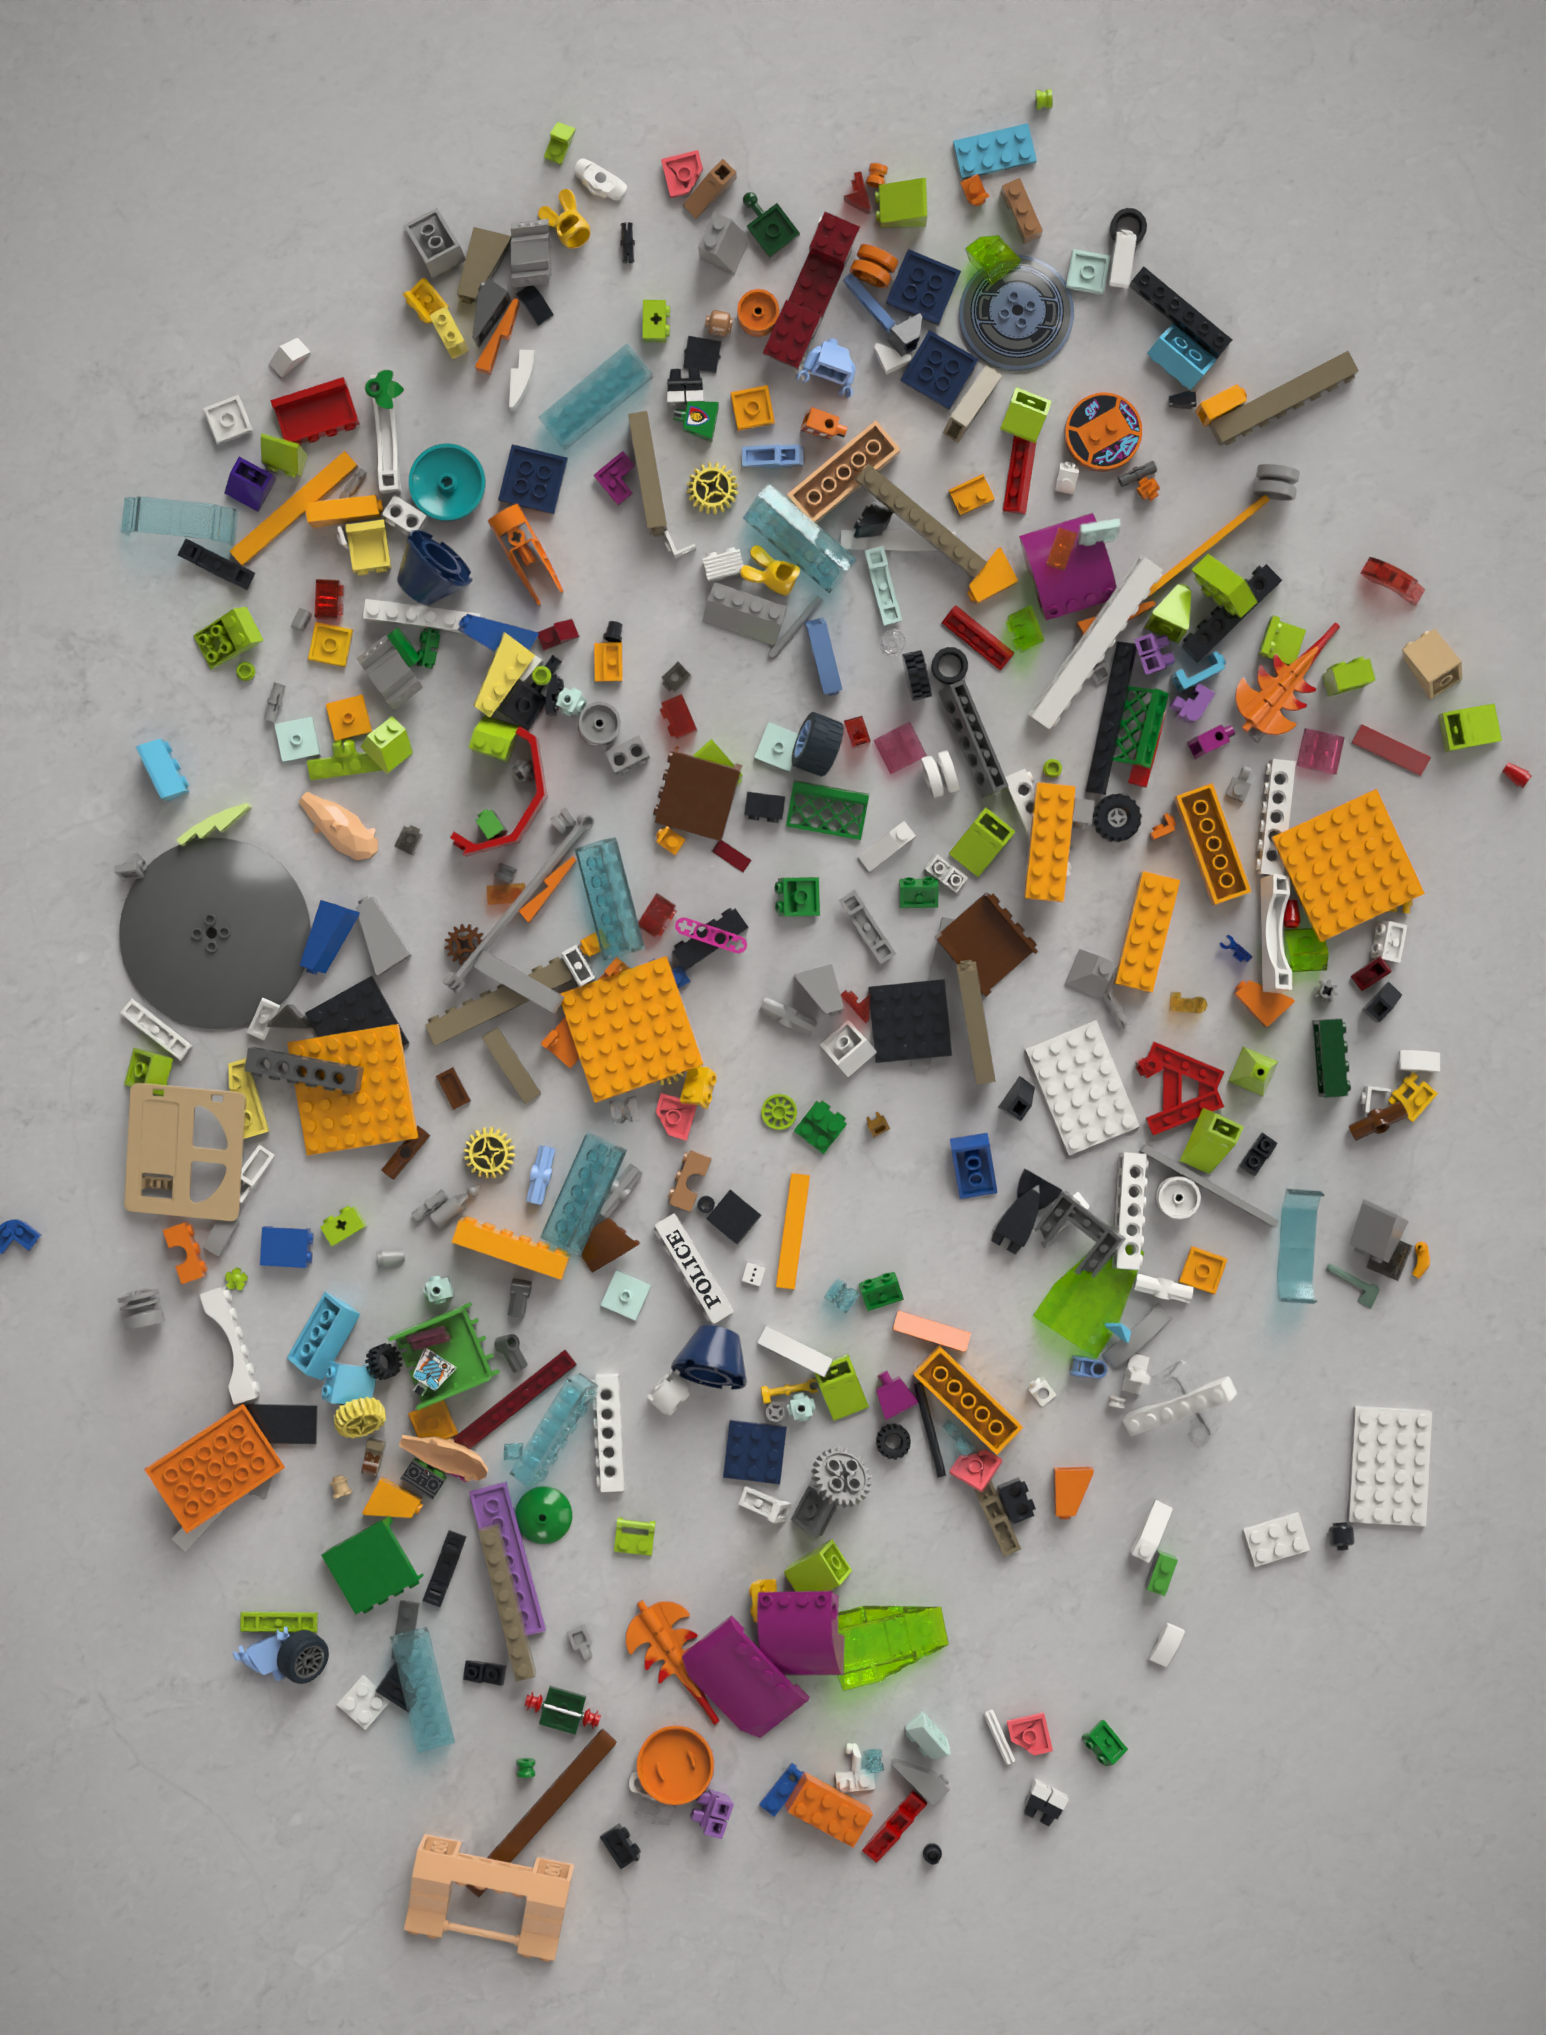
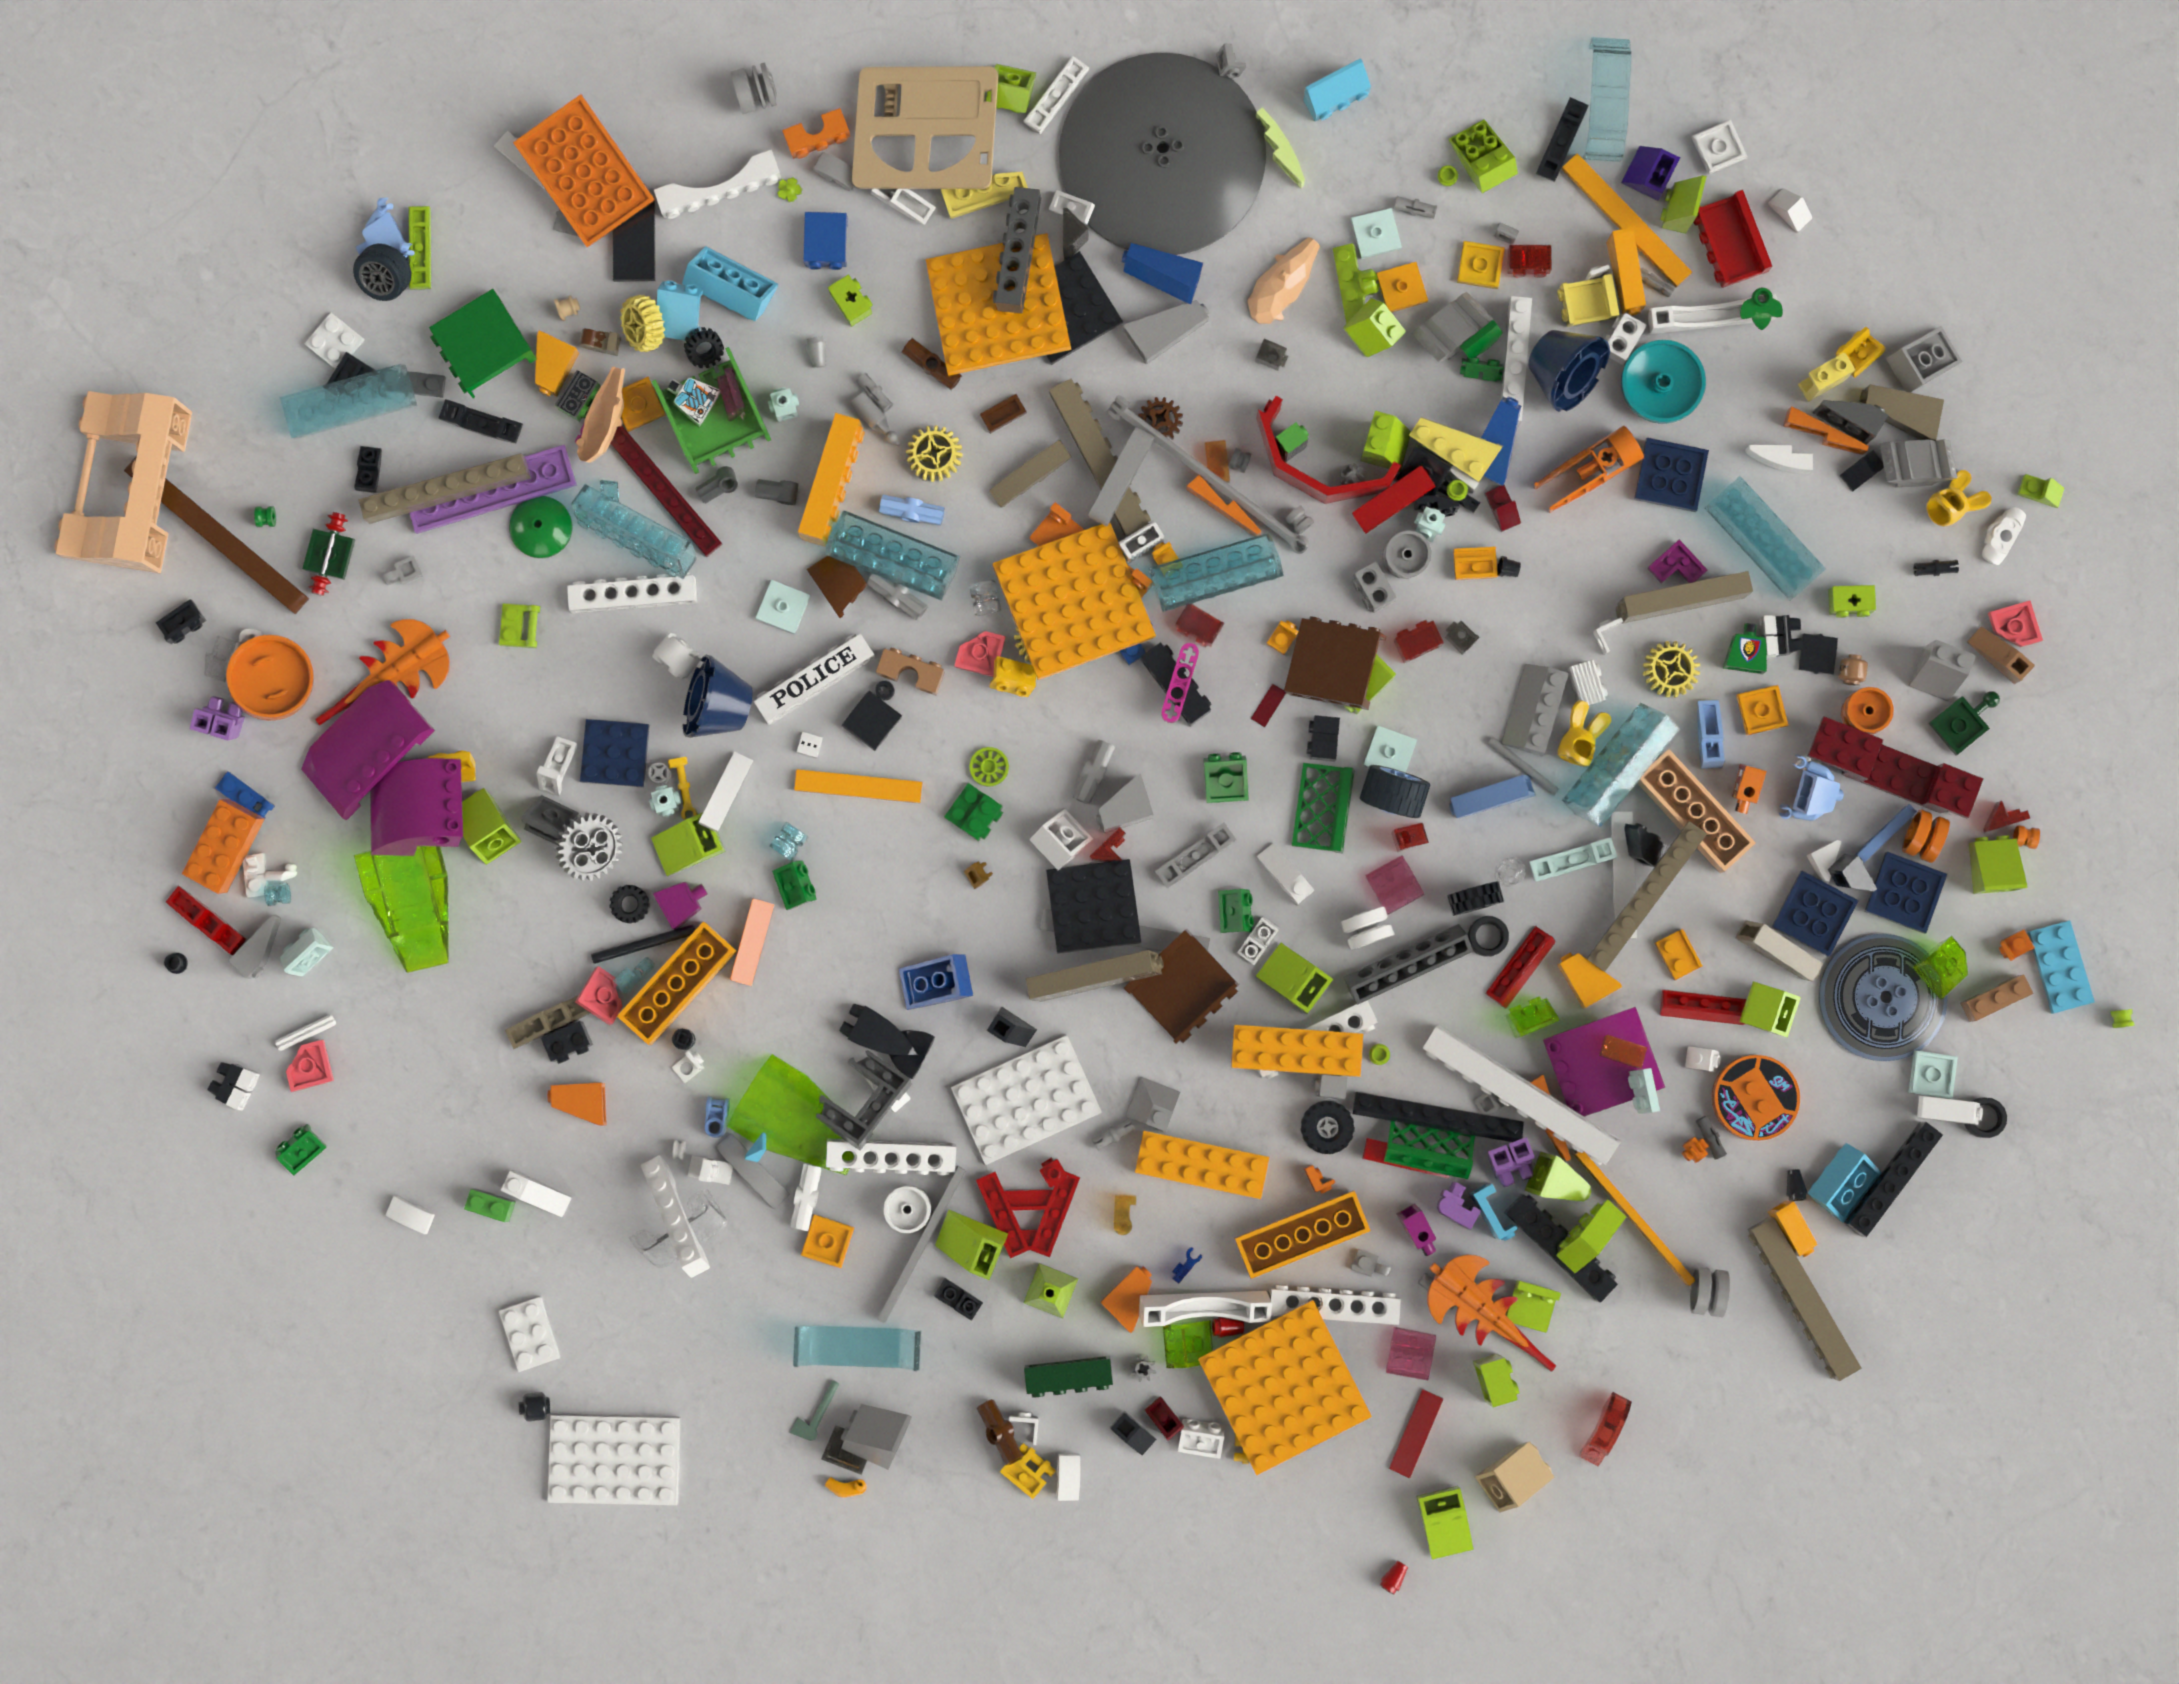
camera: 90 degrees right, 5 degrees down
(548, 733) = (1393, 499): none -> red slope
(1014, 1394) = (683, 1039): none -> black wheel

